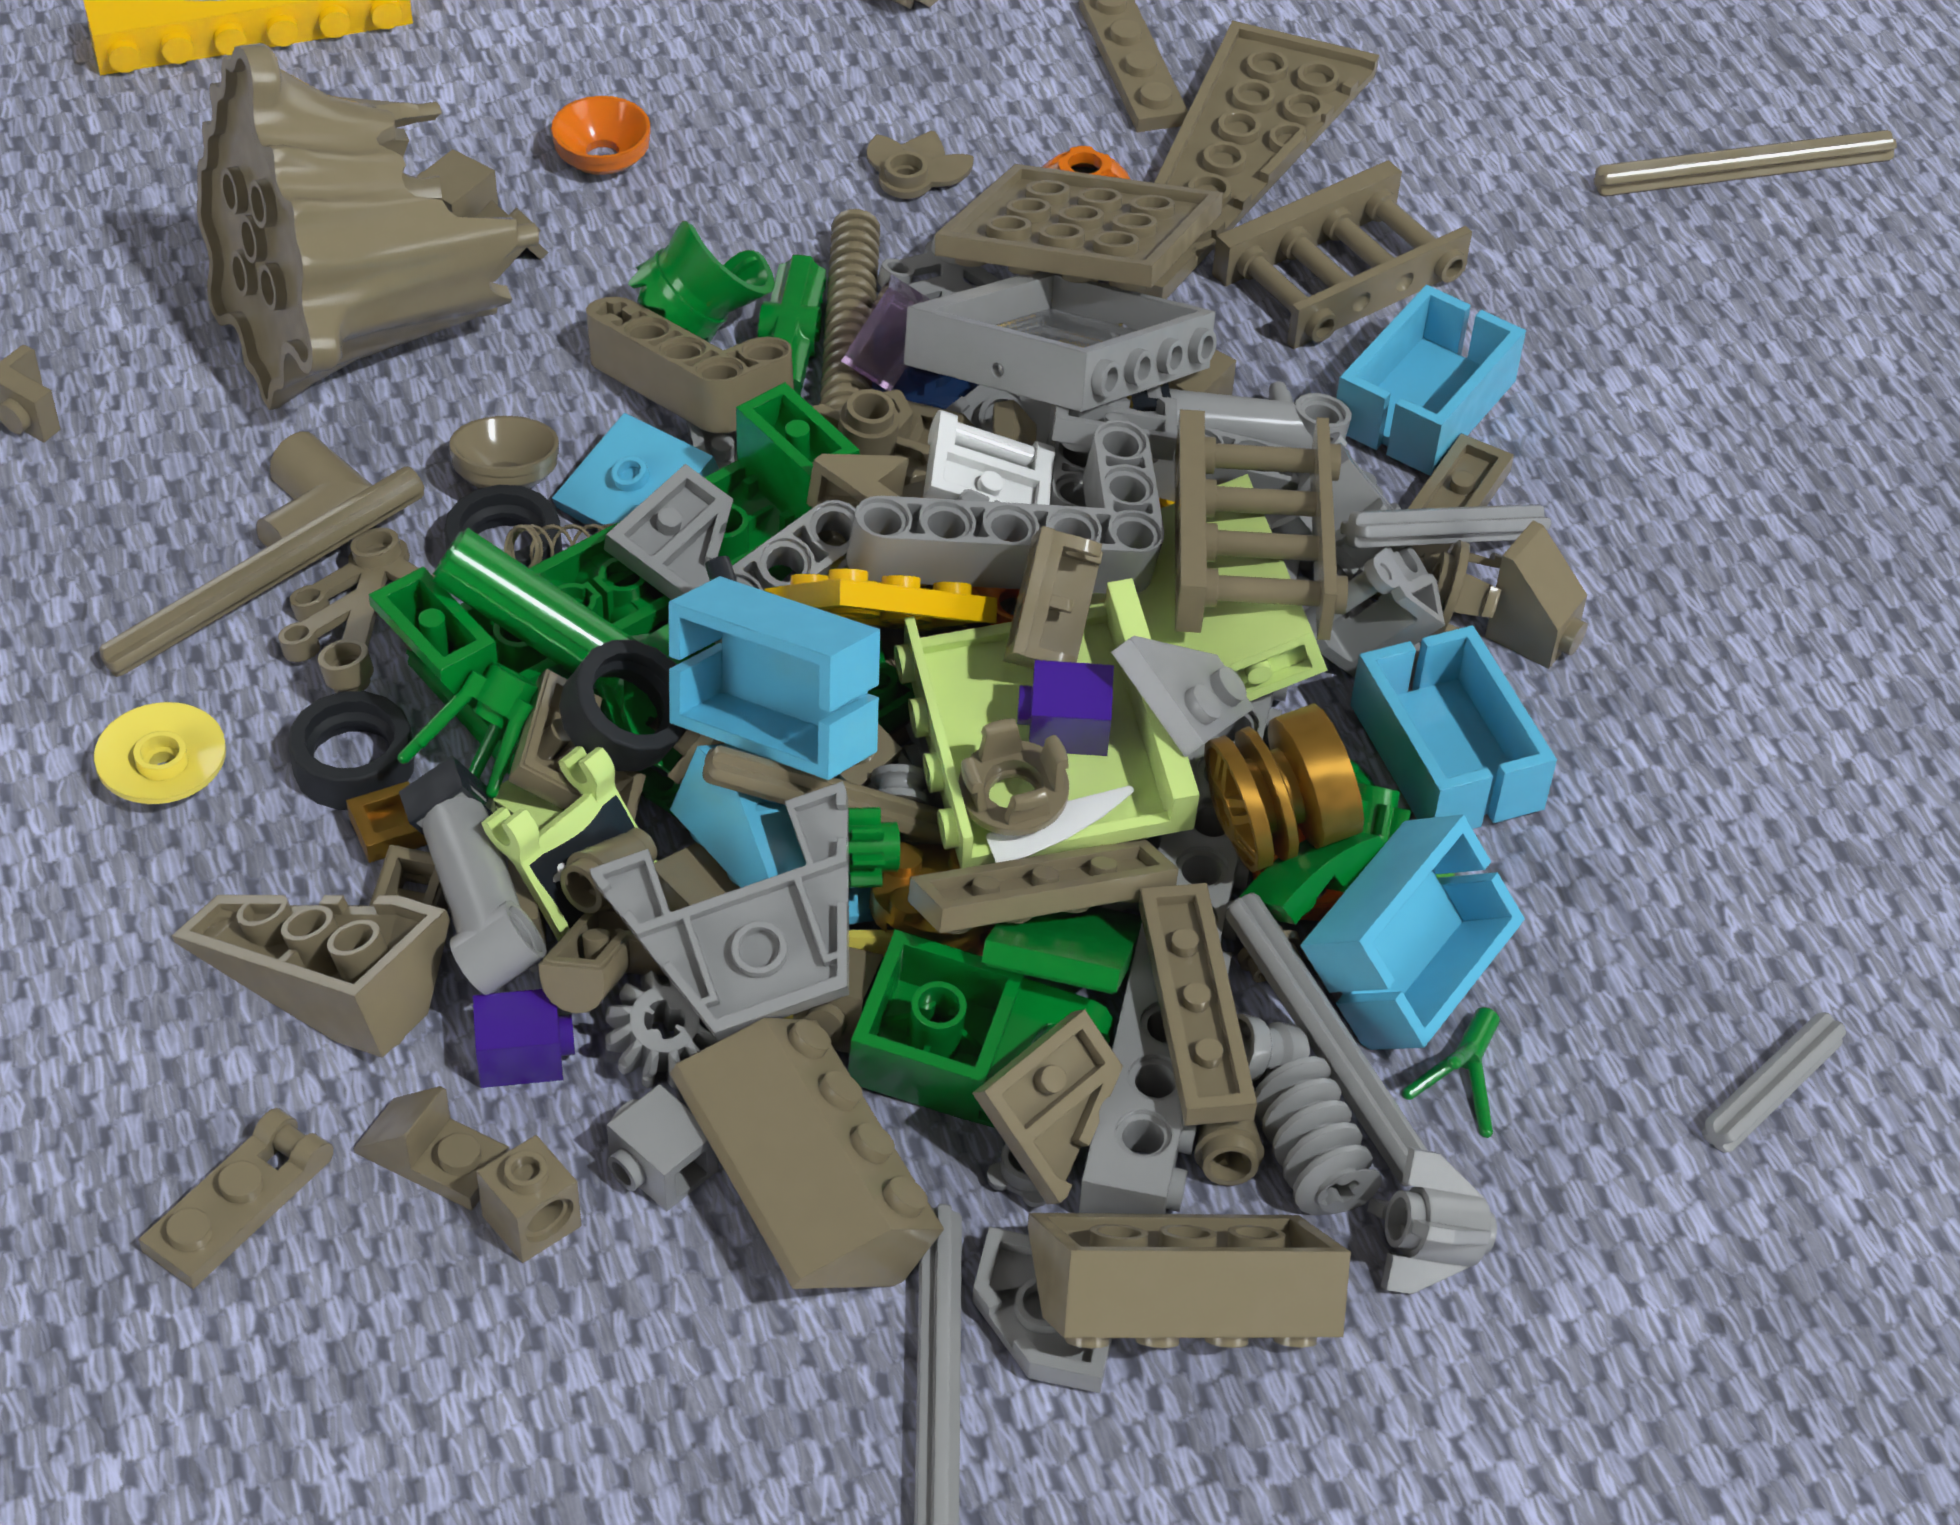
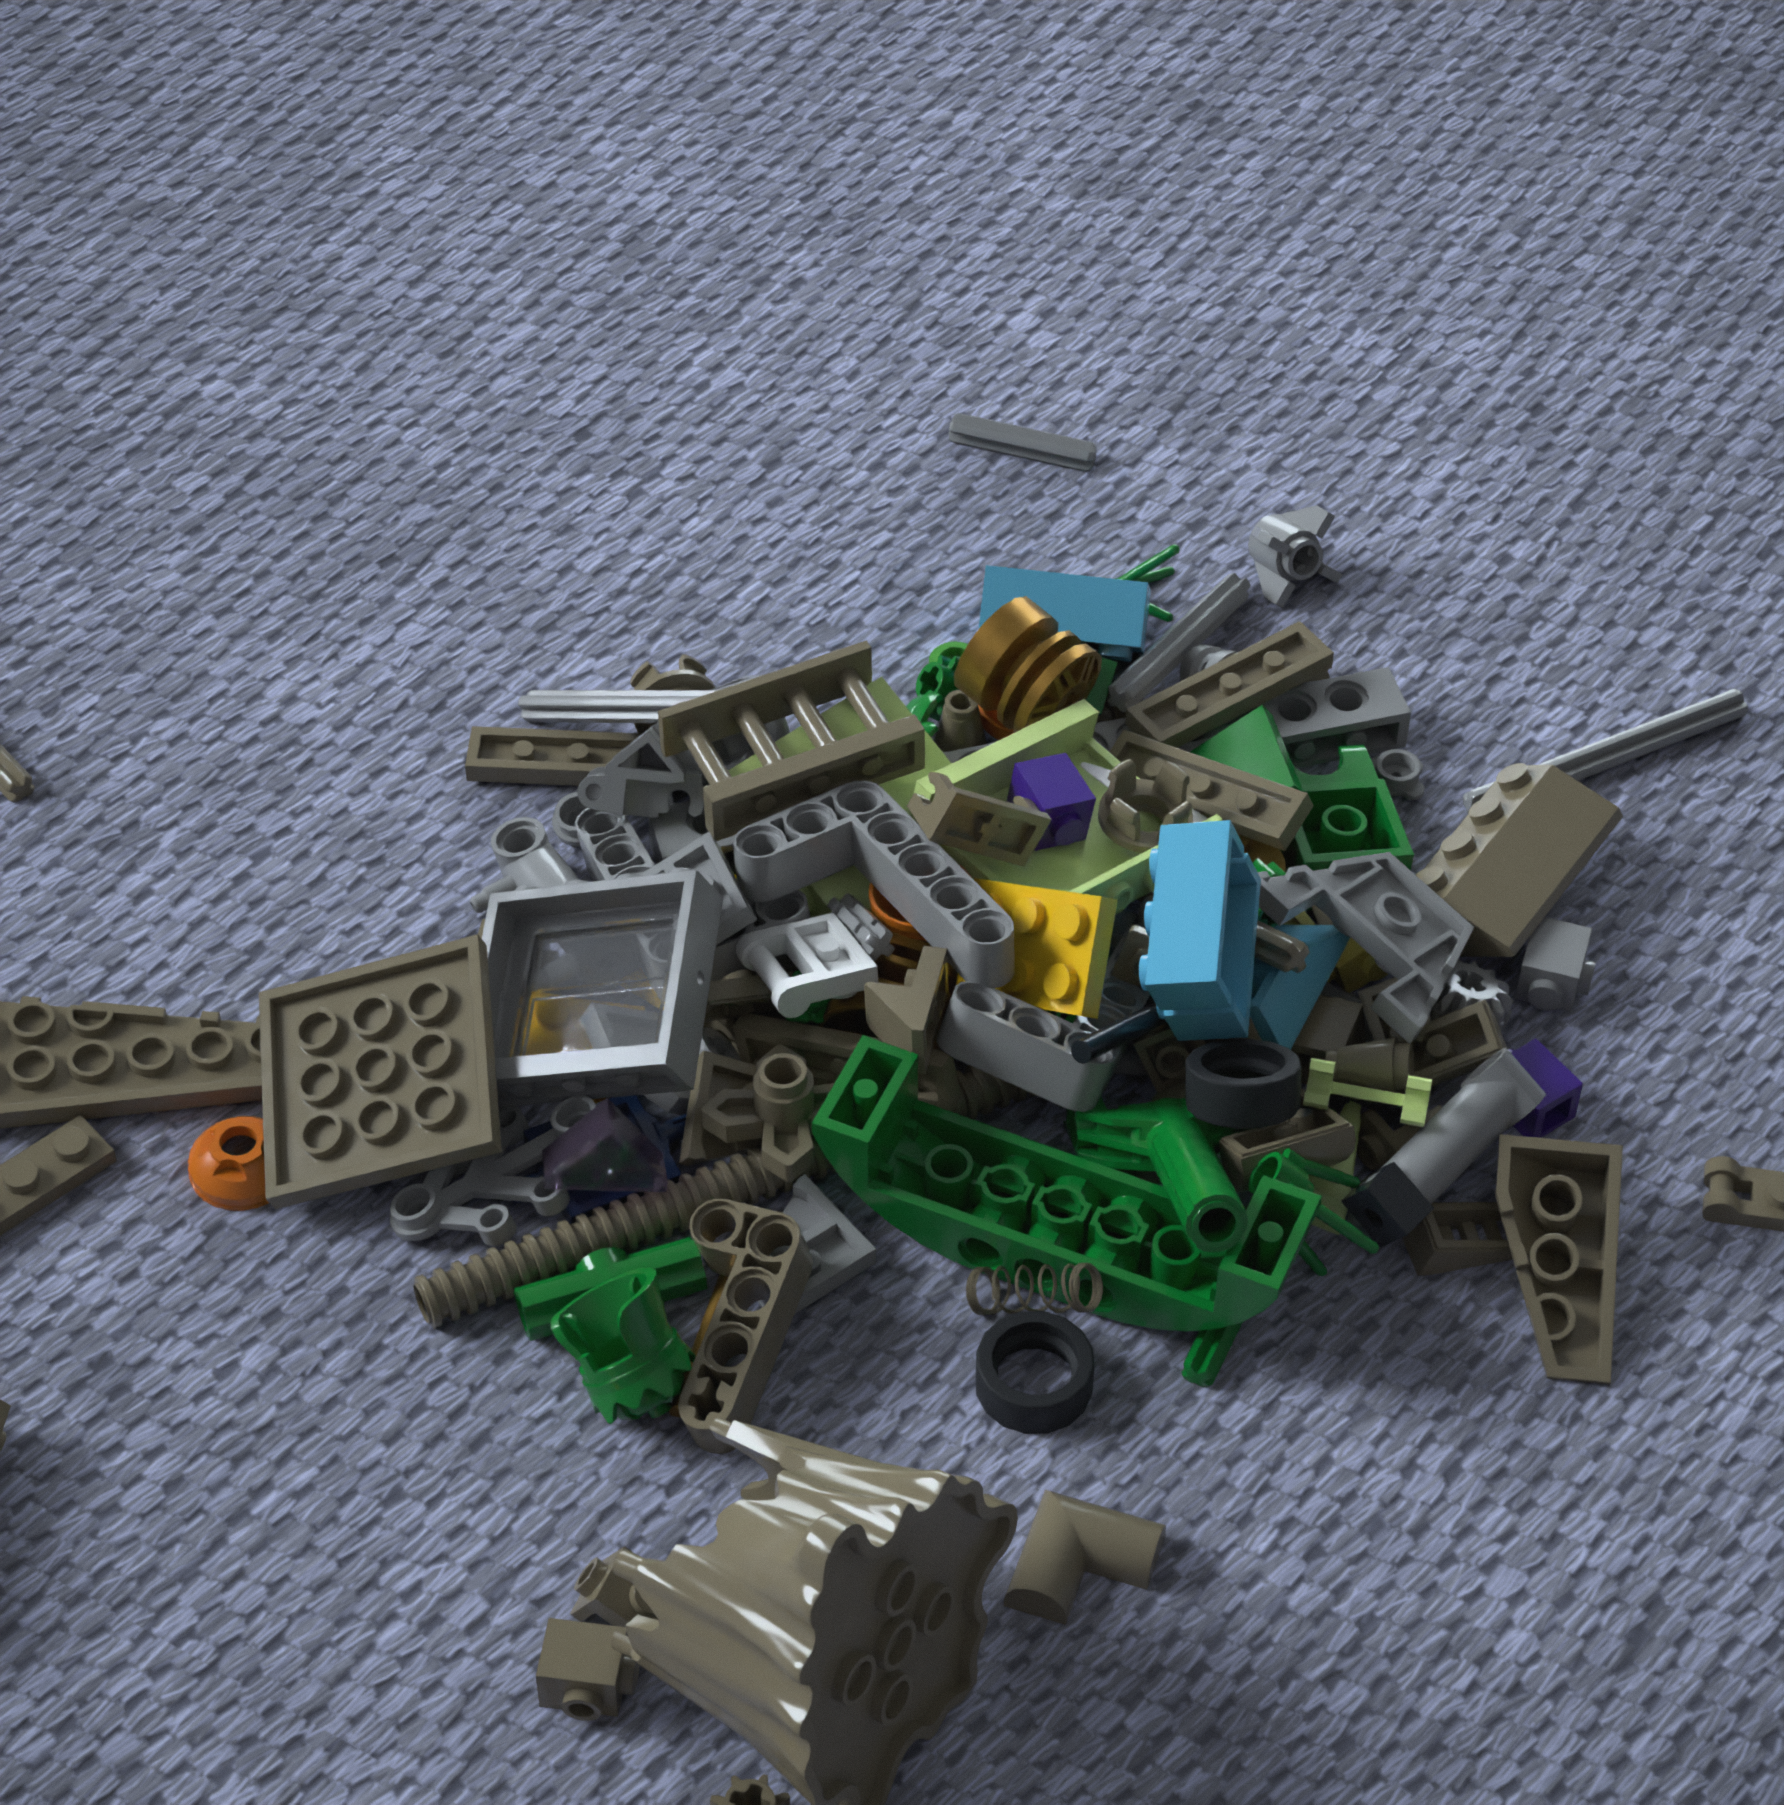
camera: 115 degrees left, 0 degrees up
(155, 734) = (1463, 1460): light yellow dish -> none
(261, 571) = (1209, 1523): dark tan axle -> none
(341, 714) = (1337, 1391): black tyre -> none
(346, 664) = (1190, 1427): dark tan plant -> none
(382, 822) = (1397, 1288): pearl gold plate -> none
(429, 1147) = (1656, 1109): dark tan slope -> none
(504, 451) = (931, 1388): dark tan piece -> none
(529, 1198) = (1659, 1011): dark tan brick -> none
(601, 123) = (402, 1555): orange piece -> none
(625, 471) = (902, 1302): medium azure plate -> none
(673, 533) = (1012, 1161): light grey wing -> none
(917, 165) = (274, 1312): dark tan plate -> none
(1010, 1303) = (1494, 719): light grey plate -> none
(1052, 1100) = (1386, 745): dark tan wing -> none
(1185, 689) = (1019, 715): light grey wing -> none
(1188, 1278) = (1434, 642): dark tan slope -> none
(1315, 1138) = (1264, 614): light grey piece -> none
(1337, 215) = (250, 966): dark tan fence -> none
(1417, 387) = (417, 794): medium azure piece -> none
(1460, 733) = (840, 618): medium azure piece -> none
(1538, 600) = (654, 642): dark tan slope -> none

